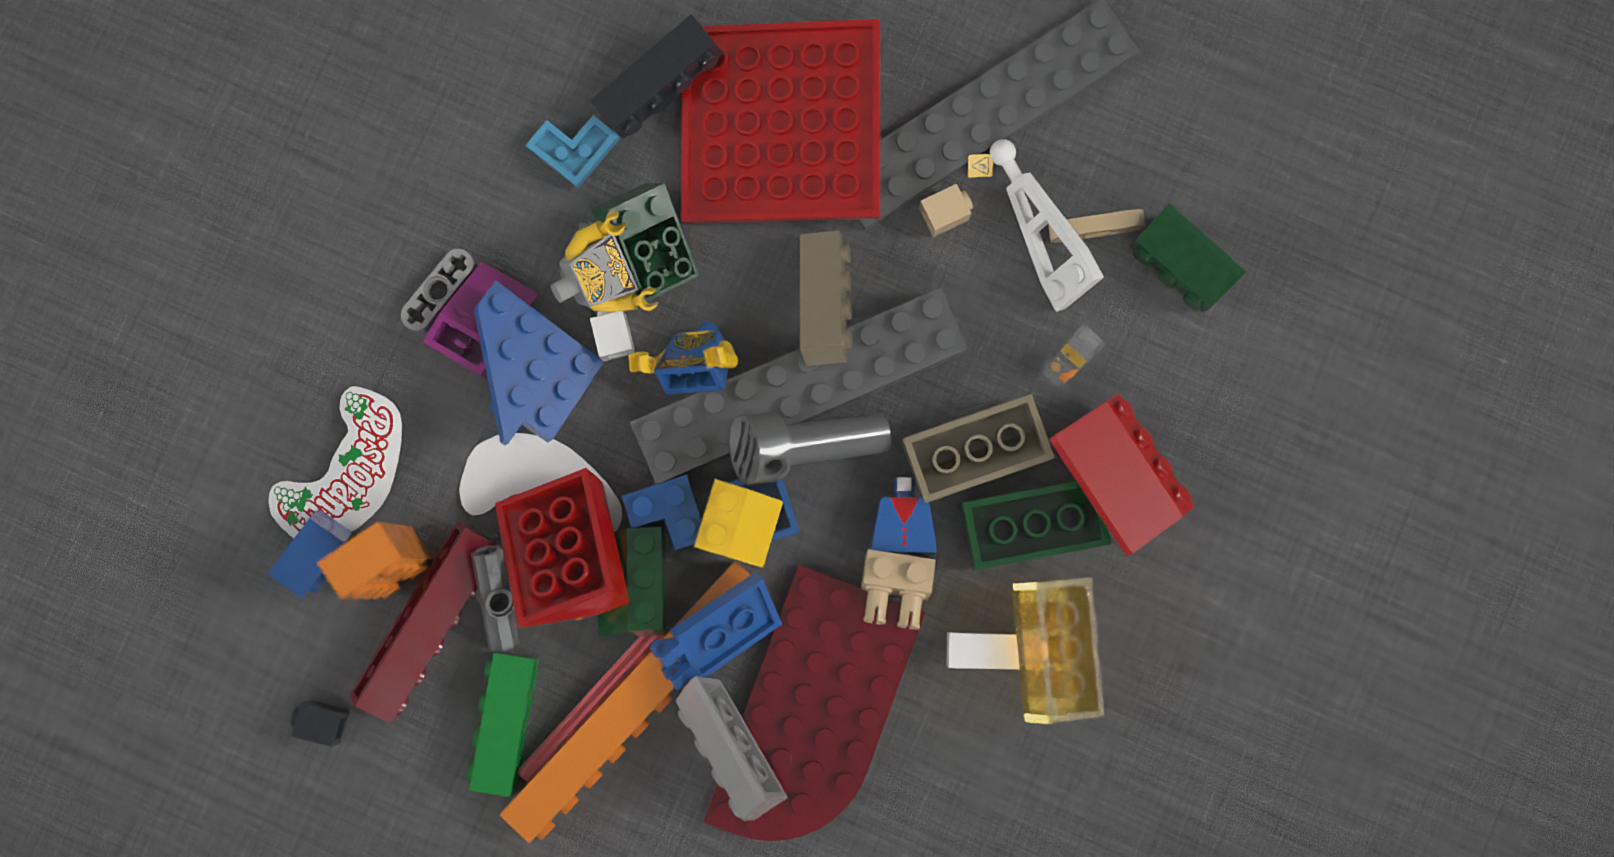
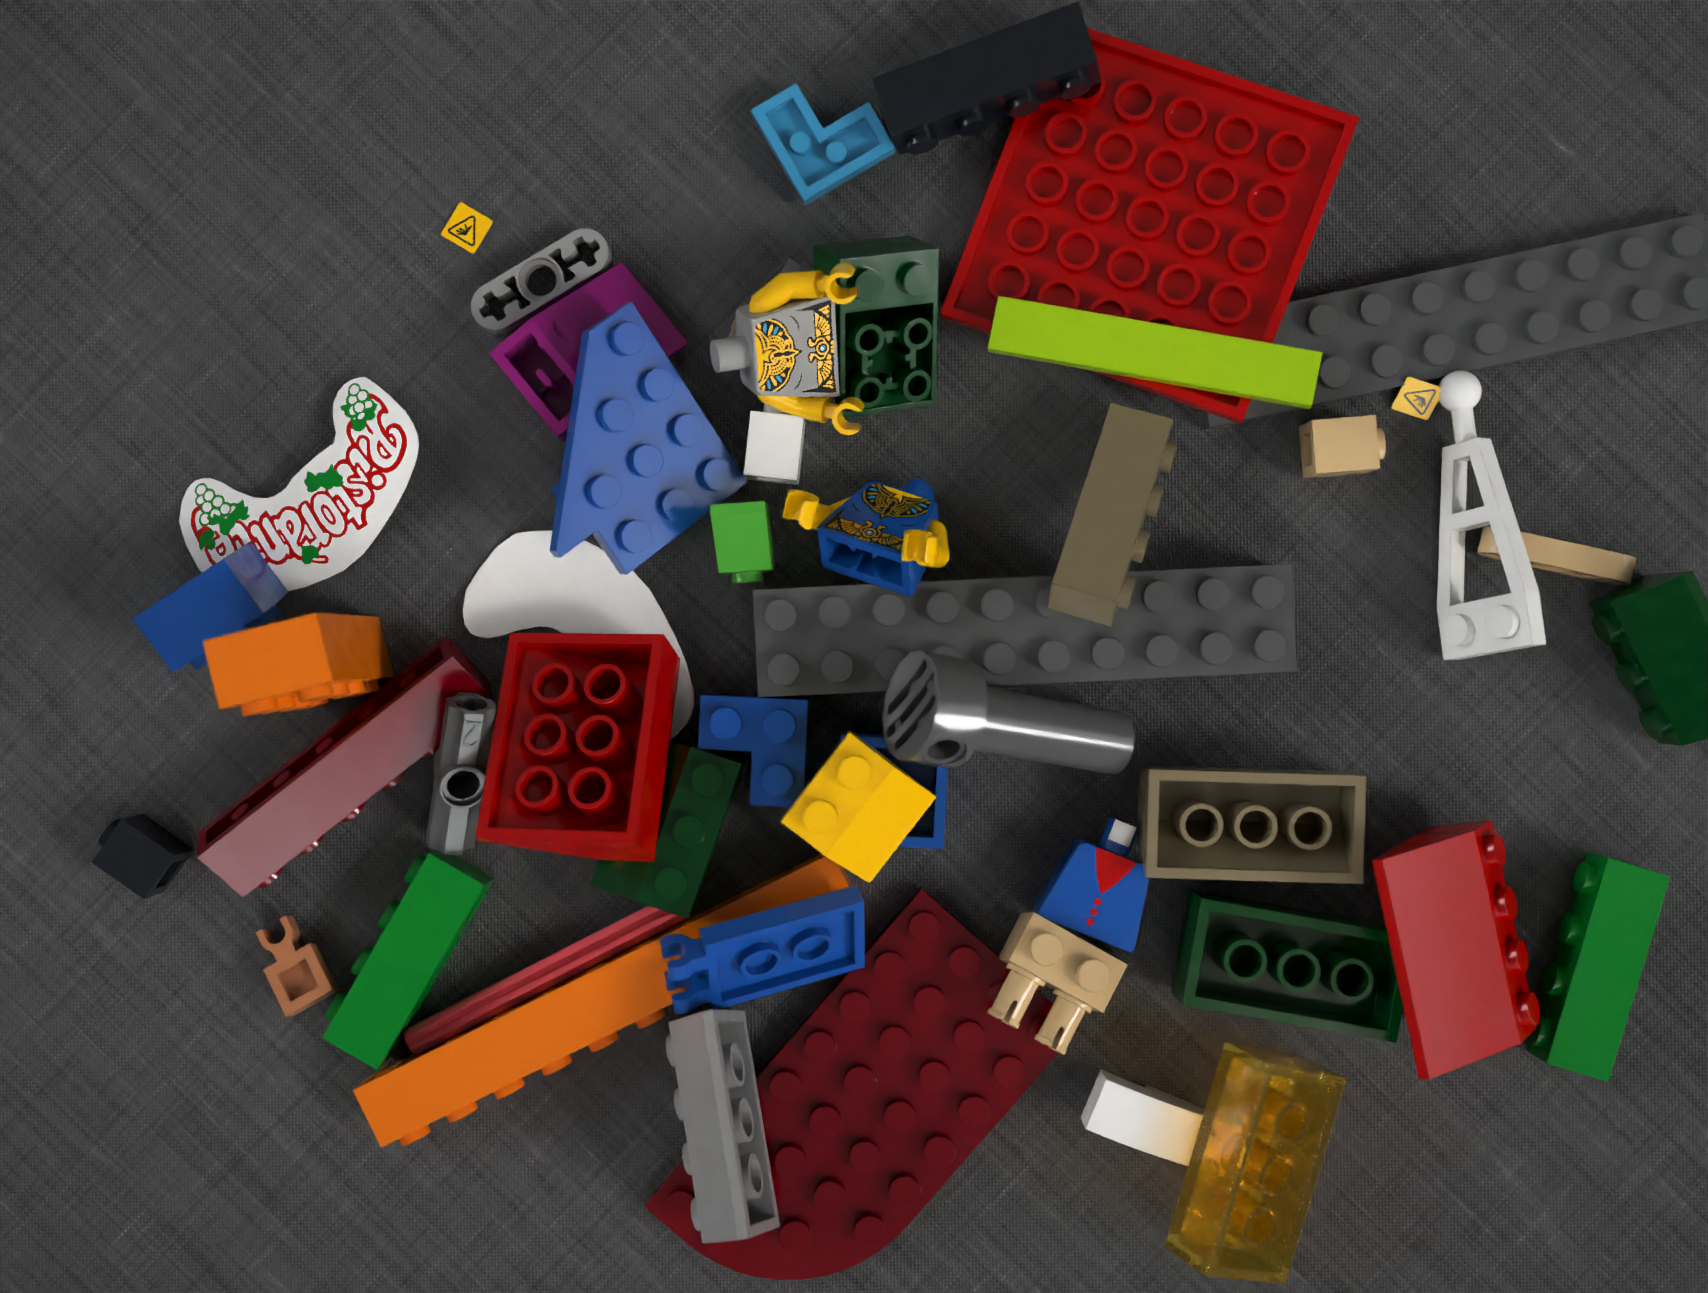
camera: 10 degrees right, 5 degrees up
(382, 276) = (466, 228): none -> yellow sticker
(441, 759) = (300, 974): none -> nougat plate
(613, 395) = (743, 540): none -> bright green slope
(812, 195) = (1155, 352): none -> lime tile
(1073, 356) = (1444, 737): clear leg -> none
(1216, 456) = (1597, 965): none -> green brick

